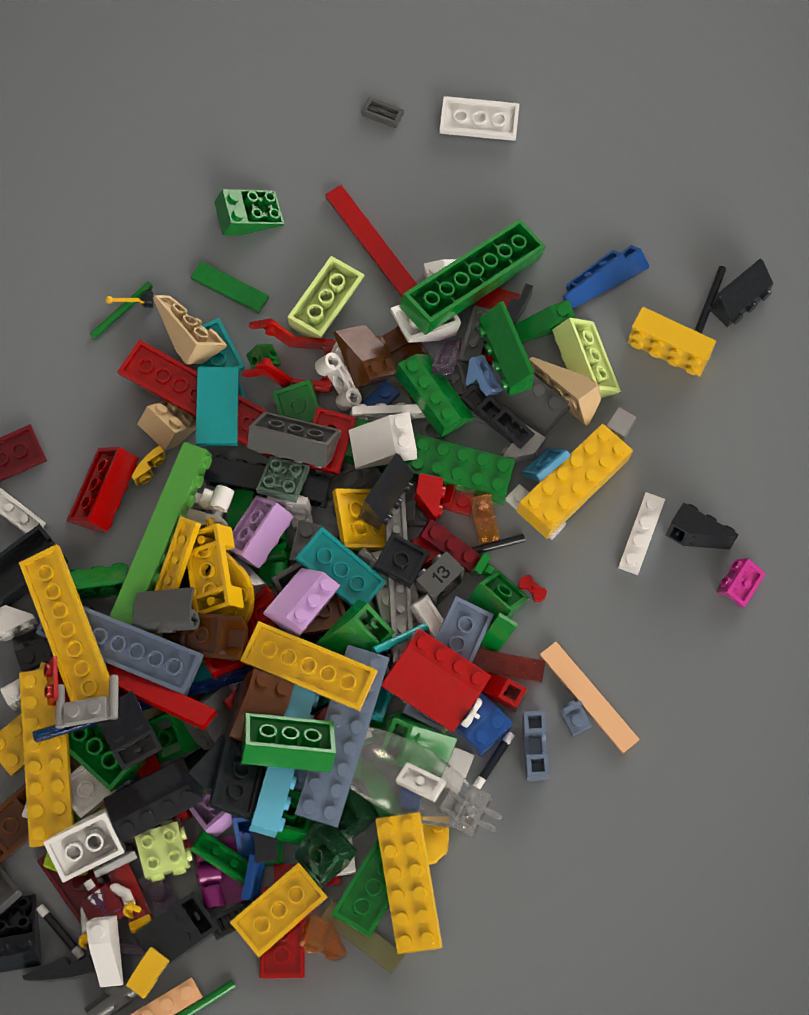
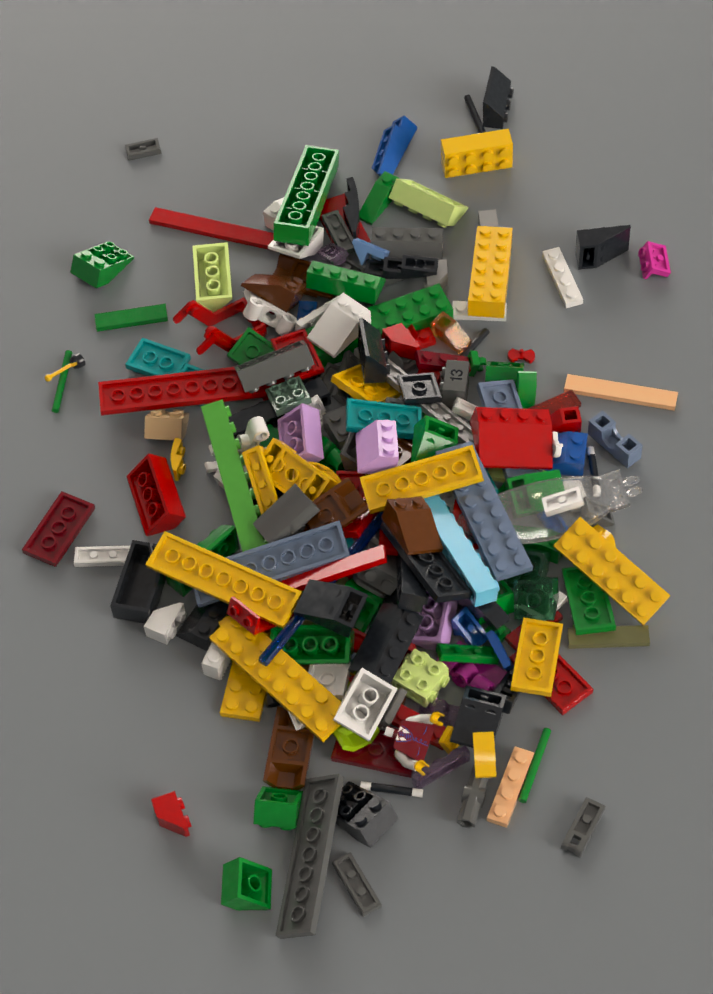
camera: 35 degrees left, 15 degrees down
(62, 970) = (421, 807): black slope -> none
(88, 709) = (289, 611): light grey plate -> none
(105, 950) = (442, 762): white slope -> none
(187, 334) = (139, 360): tan wedge -> none
(217, 406) = (195, 382): teal tile -> none
(263, 351) = (196, 338): green brick -> none
(288, 742) = (454, 528): green slope -> none
(322, 938) = (584, 652): clear orange slope -> none
(398, 639) = (464, 432): teal bar -> none
(479, 118) = (217, 111): white plate -> none
(506, 350) = (374, 217): green slope -> none
(545, 464) = (461, 274): dark azure tile -> none
(573, 387) = (441, 214): tan wedge -> none
(575, 717) = (623, 409): sand blue bracket -> none

